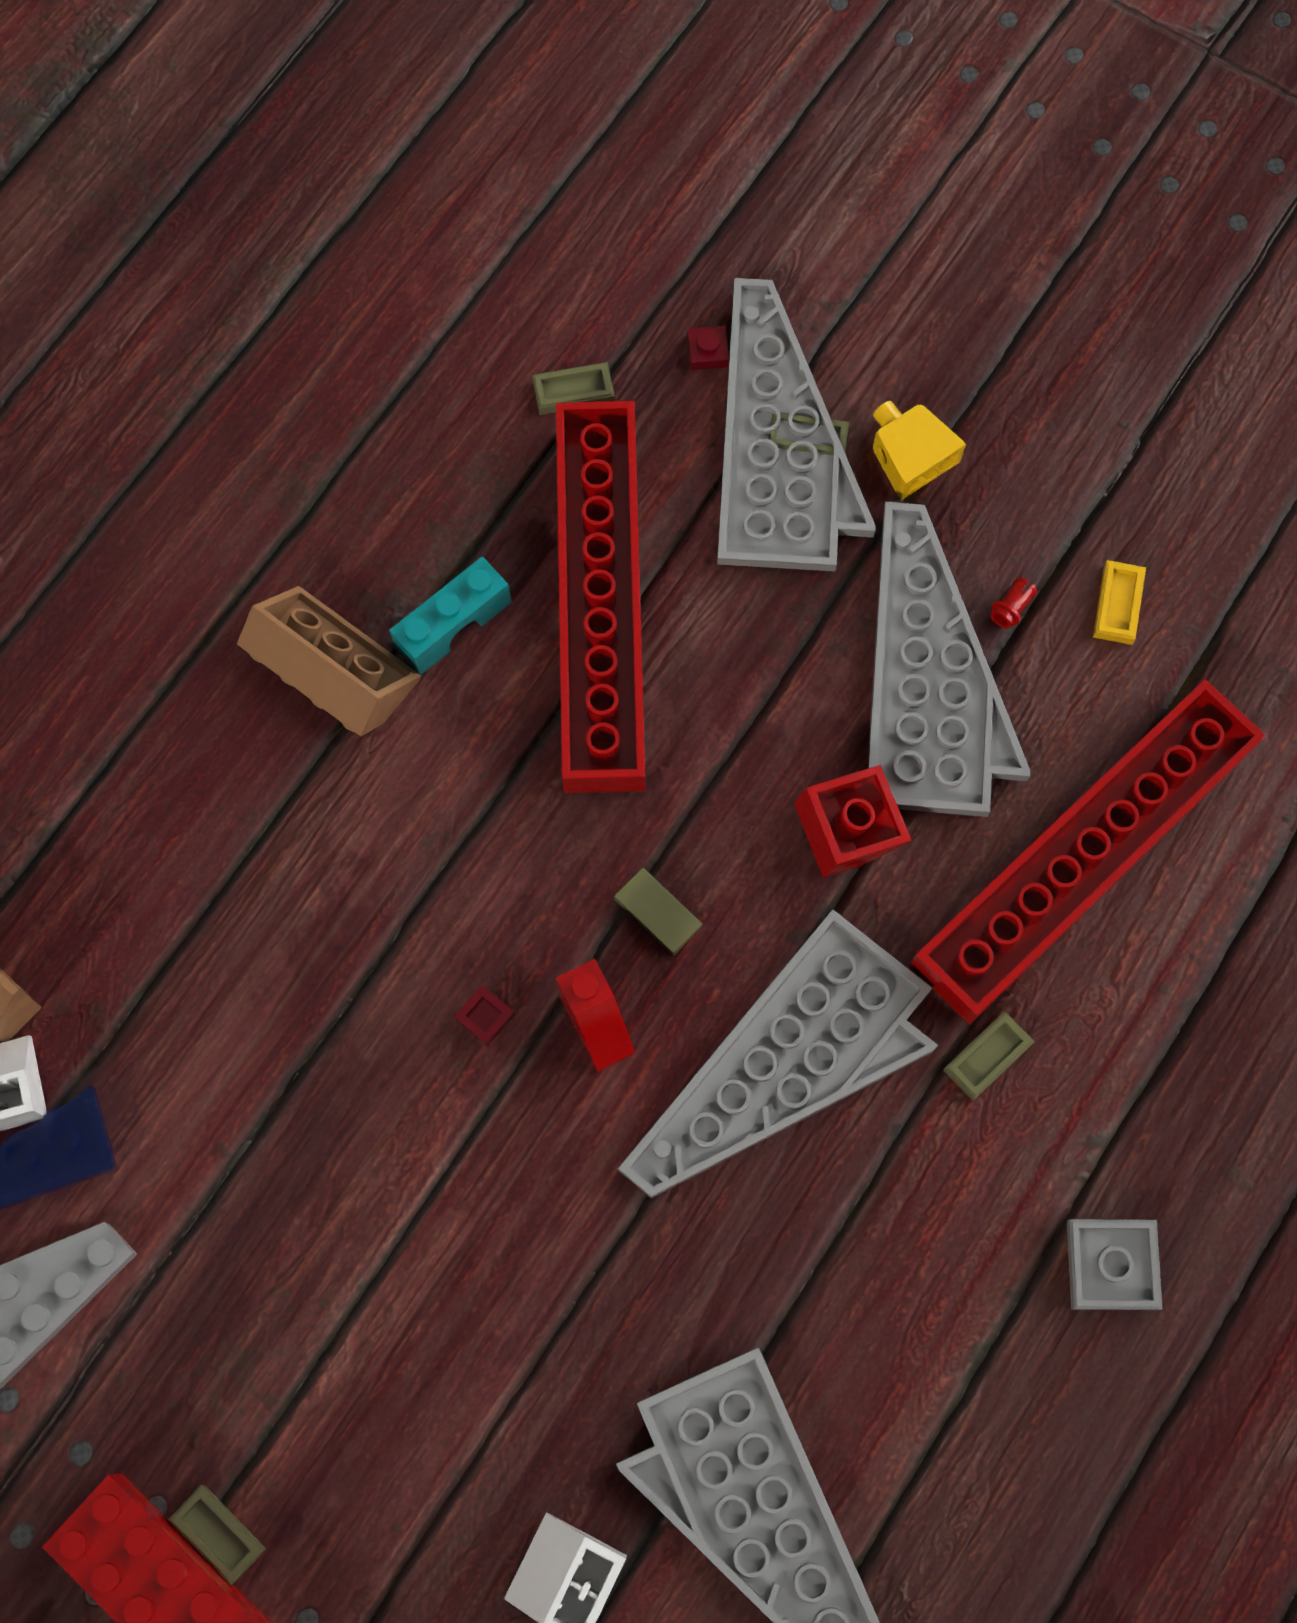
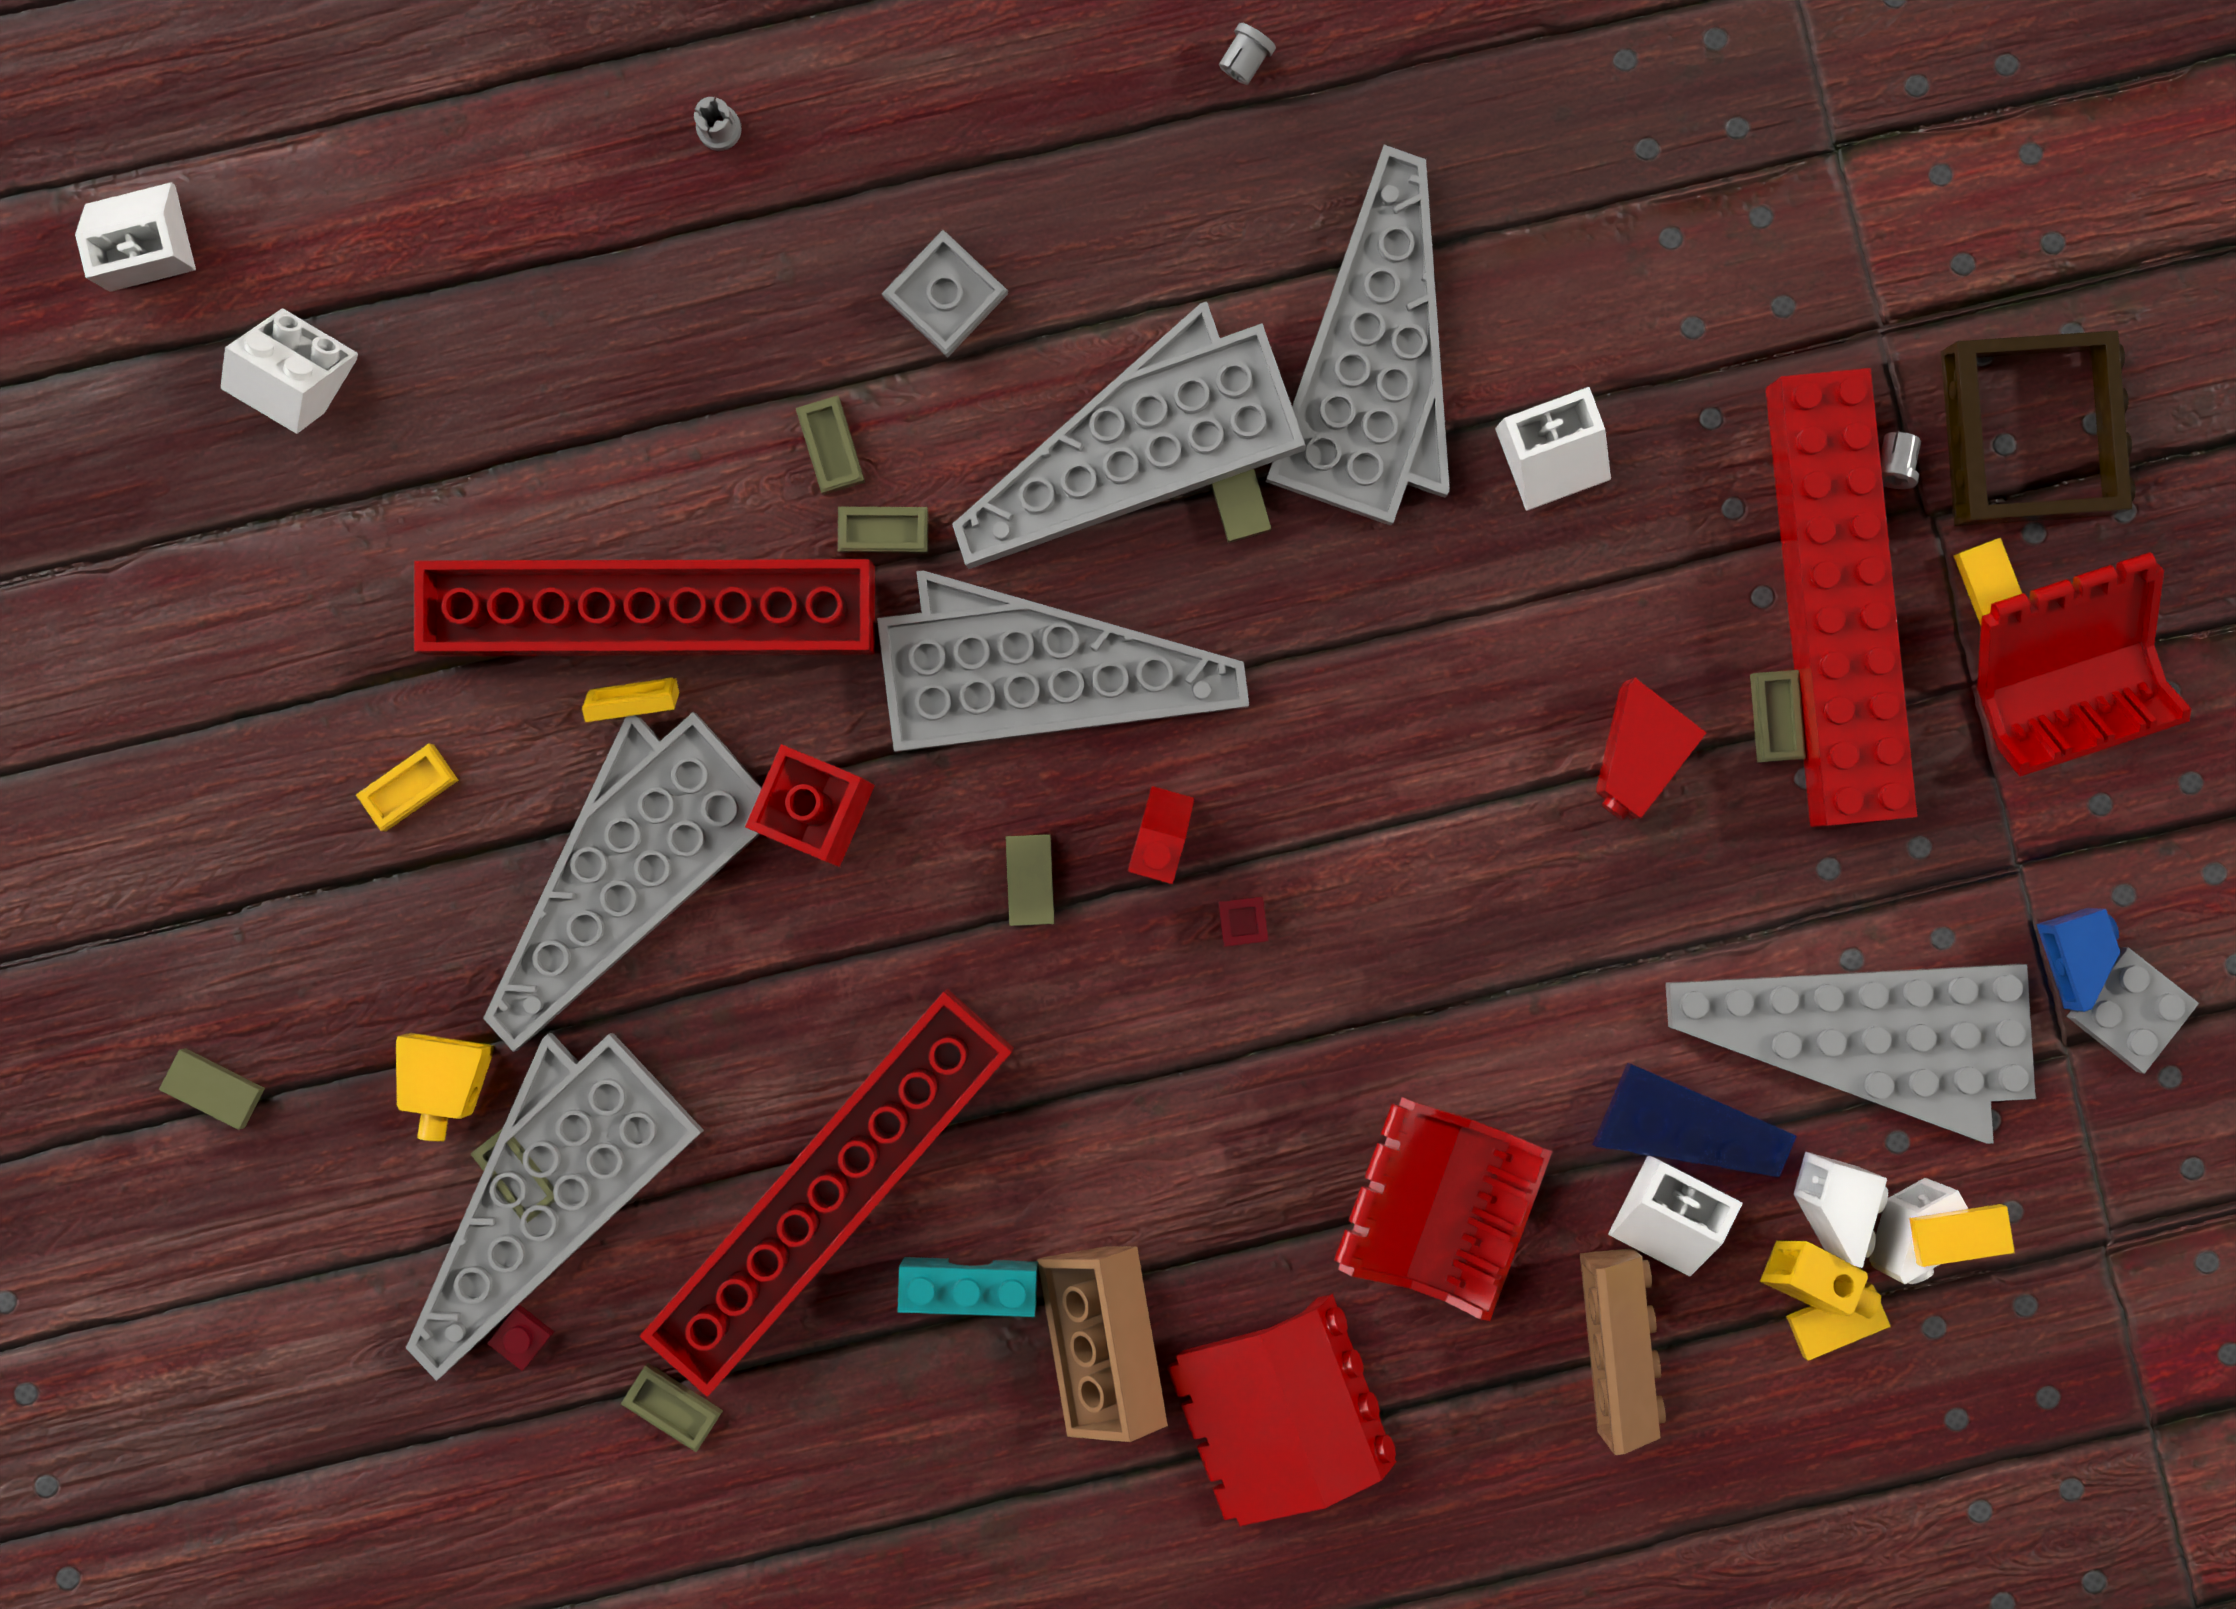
camera: 140 degrees left, 15 degrees up
(158, 720) = (1284, 1416): none -> red hinge
(169, 947) = (1443, 1207): none -> red hinge
(298, 1406) = (1643, 750): none -> red slope
(770, 1319) = (1241, 506): none -> olive tile
(866, 1316) = (1163, 427): none -> light grey wing
(1008, 610) = (496, 866): red pin -> none
(1037, 783) = (630, 699): none -> yellow tile
(1044, 323) = (211, 1088): none -> olive tile
(1083, 1080) = (830, 445): none -> olive tile

